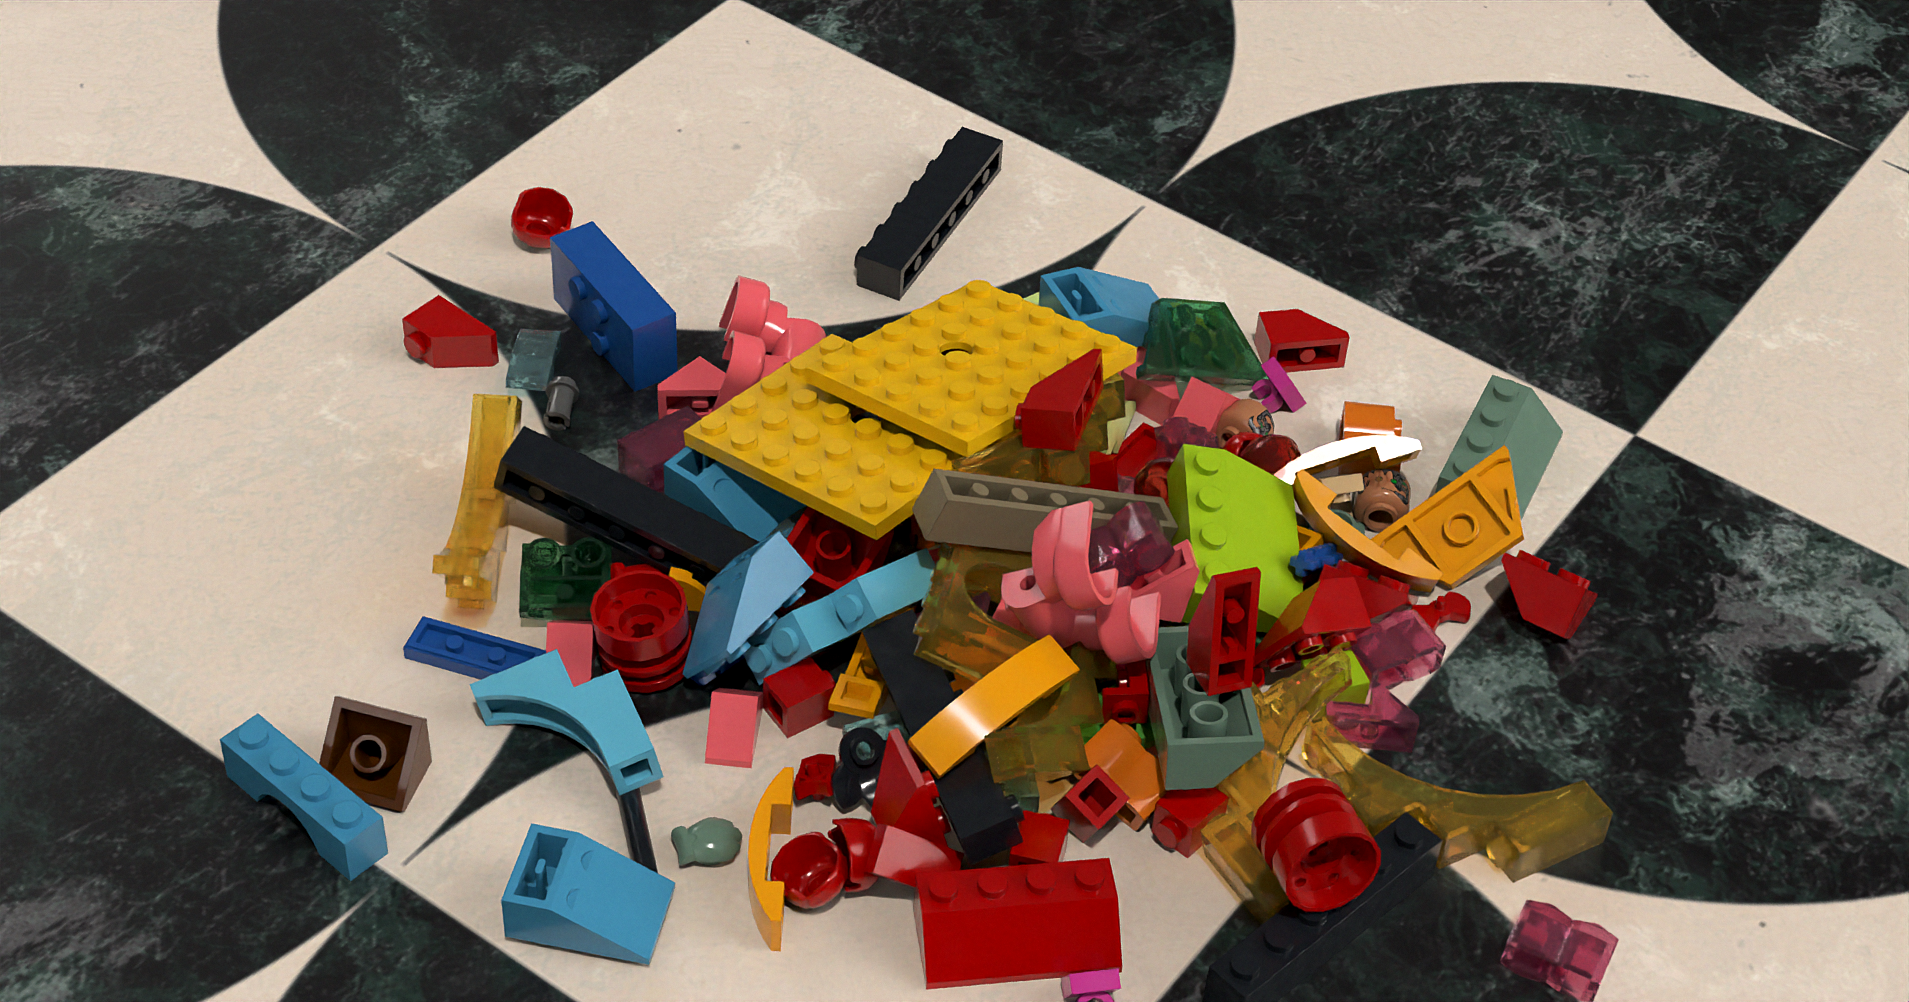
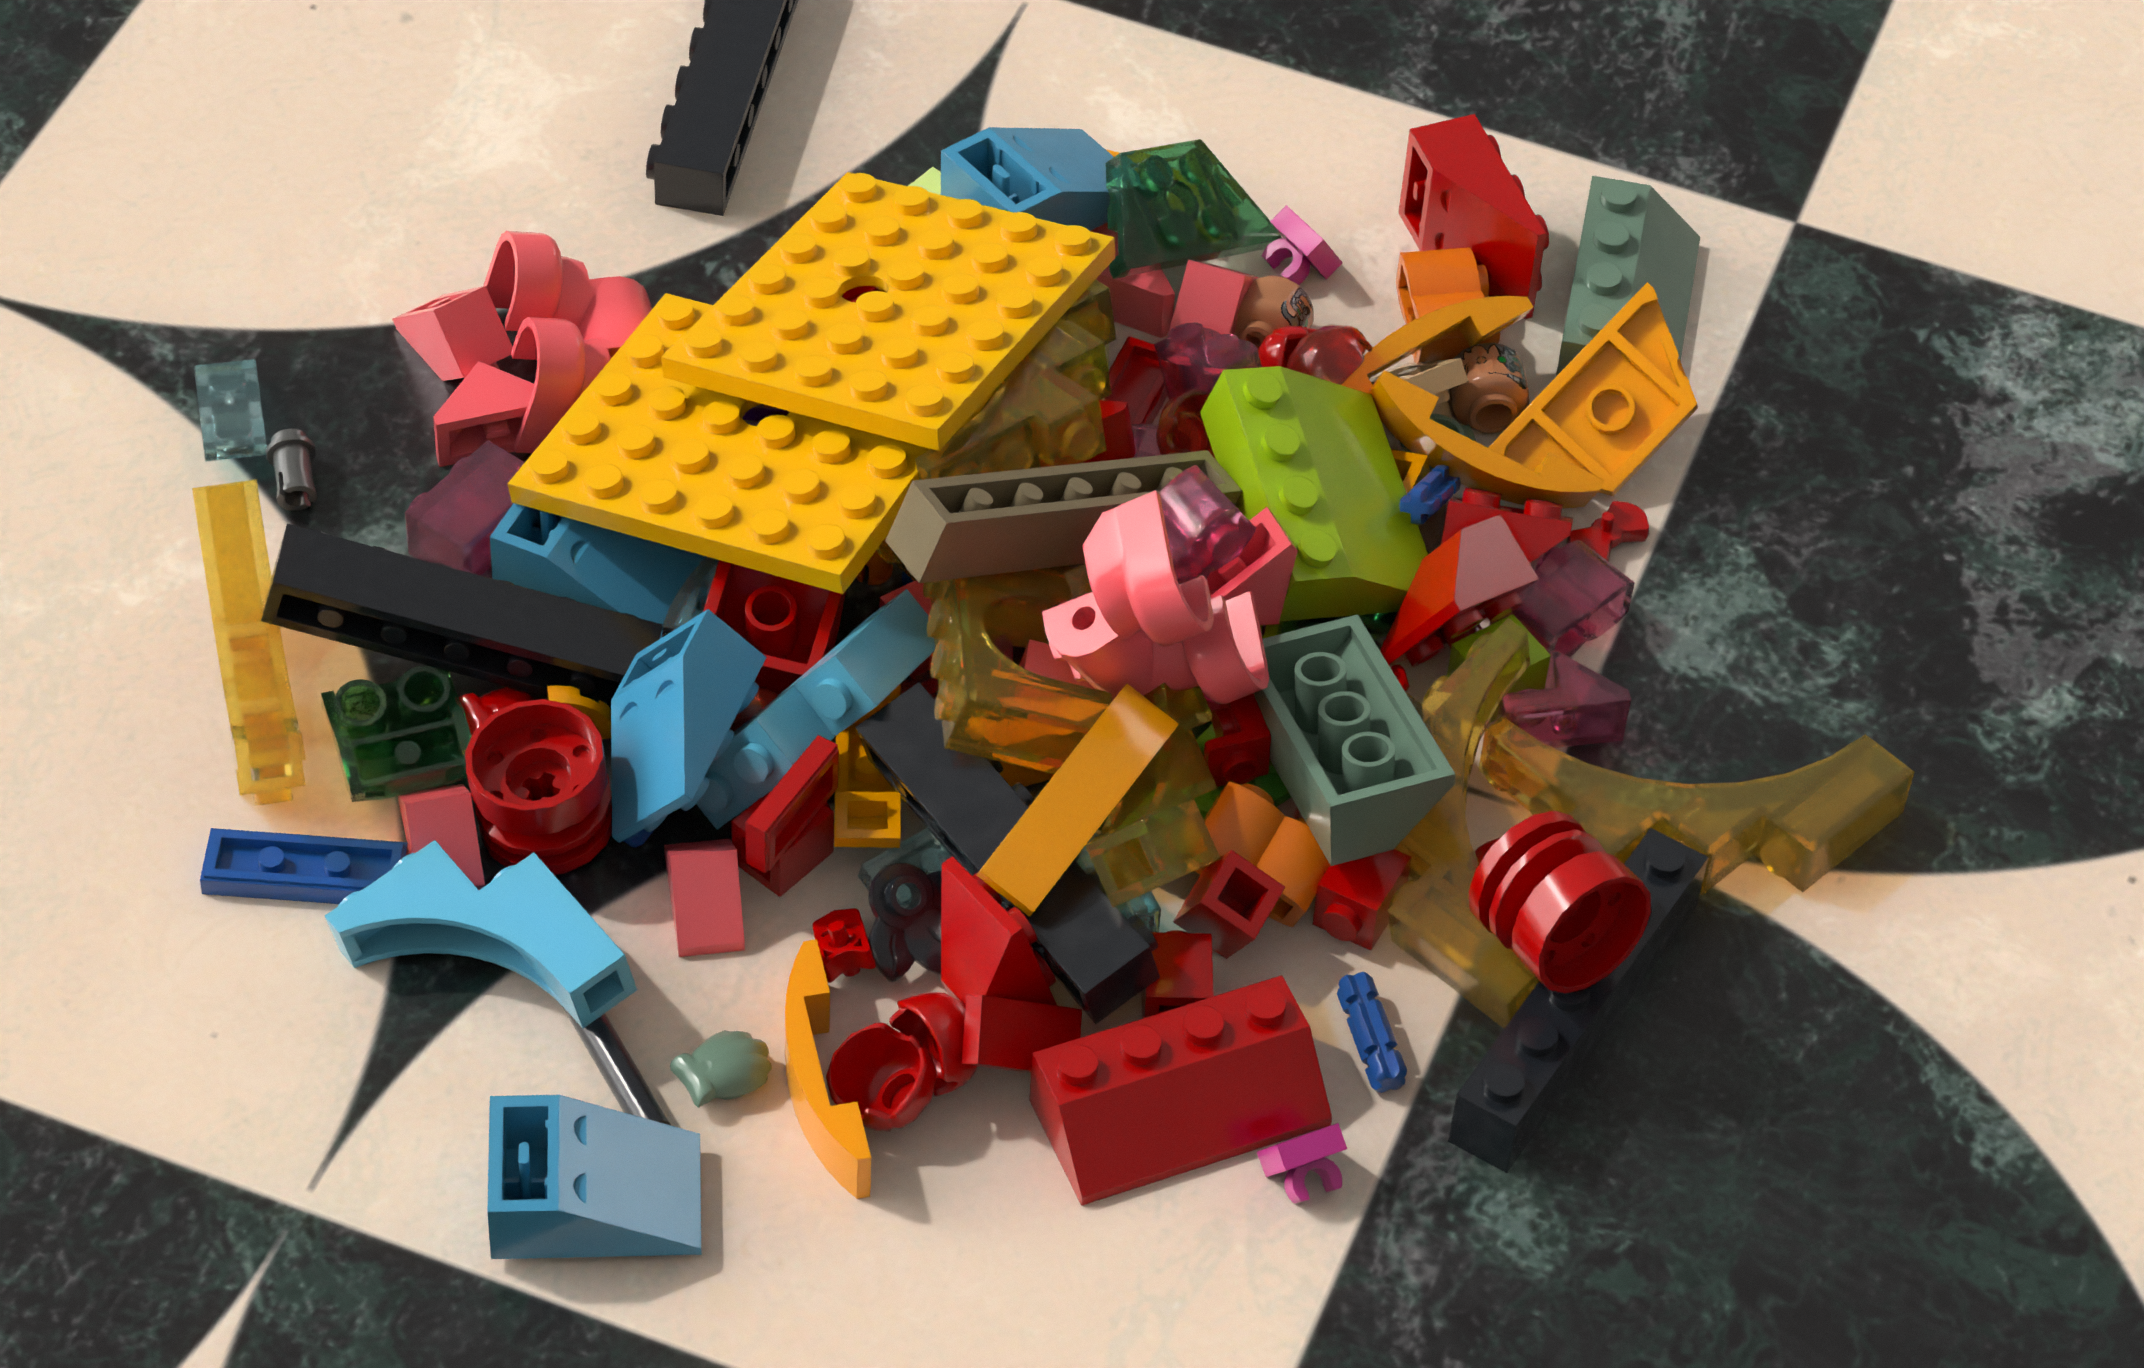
camera: 15 degrees left, 5 degrees up
(338, 821) = (205, 1148): dark azure arch -> none
(376, 752) = (219, 1044): reddish brown slope -> none
(449, 336) = (96, 399): red slope -> none
(540, 215) = (166, 187): red hair -> none
(614, 306) = (327, 307): blue brick -> none
(699, 336) = (456, 332): none -> coral slope
(803, 673) = (792, 804): none -> red tile
(1061, 404) = (1044, 348): red slope -> none
(1168, 913) = (1372, 1032): none -> blue axle
(1225, 632) = (1368, 637): red slope -> none
(1300, 341) = (1308, 172): red slope -> none
(1400, 374) = (1465, 197): none -> red slope
(1546, 598) = (1746, 485): red slope -> none
(1559, 950) = (1890, 972): clear pink brick -> none

